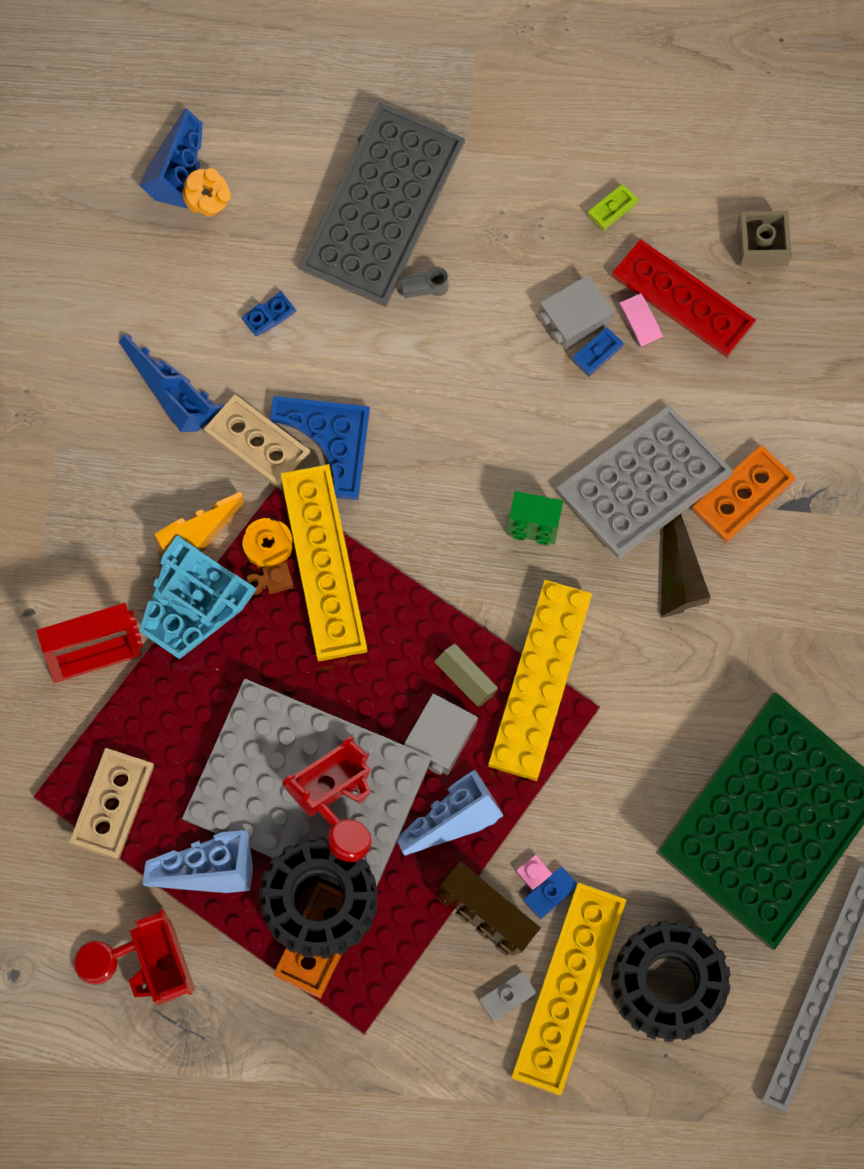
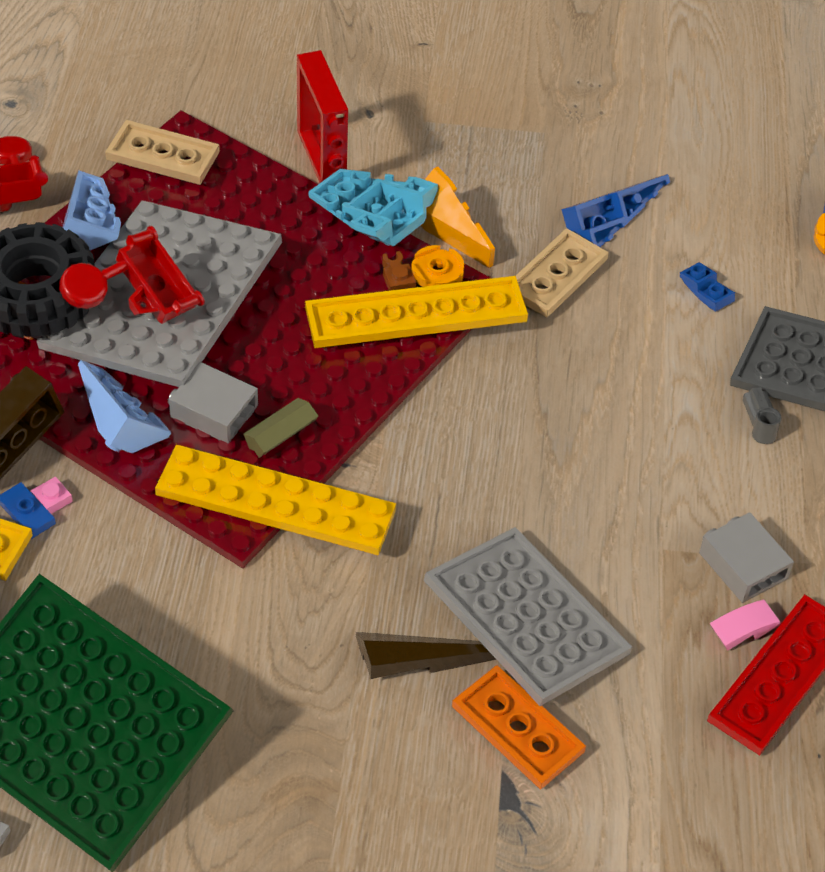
camera: 90 degrees right, 20 degrees down
(336, 430) = (568, 339): blue plate -> none
(534, 518) = (471, 496): green brick -> none
(597, 351) = (697, 578): blue plate -> none

